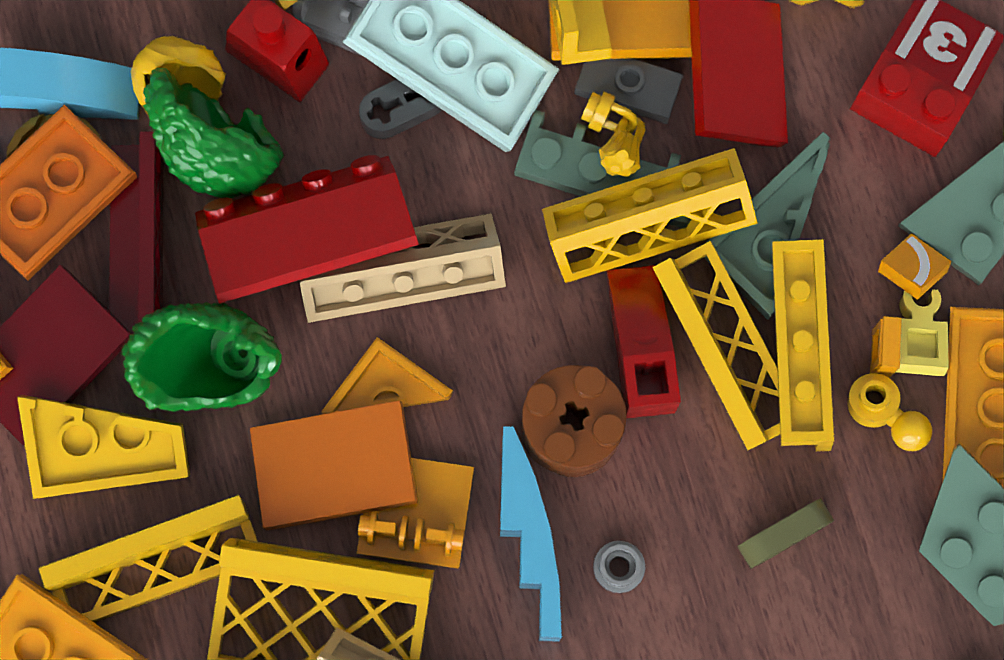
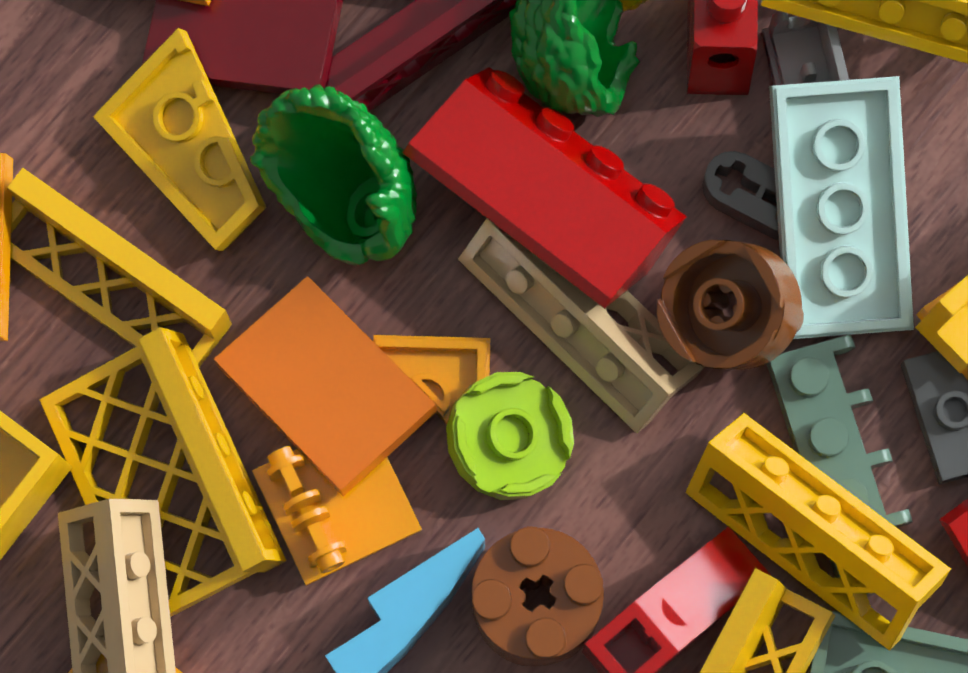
camera: 60 degrees right, 0 degrees up
(445, 184) = (696, 294): none -> dark orange brick
(452, 367) = (509, 436): none -> lime tile
(621, 152) = (864, 454): yellow piece -> none

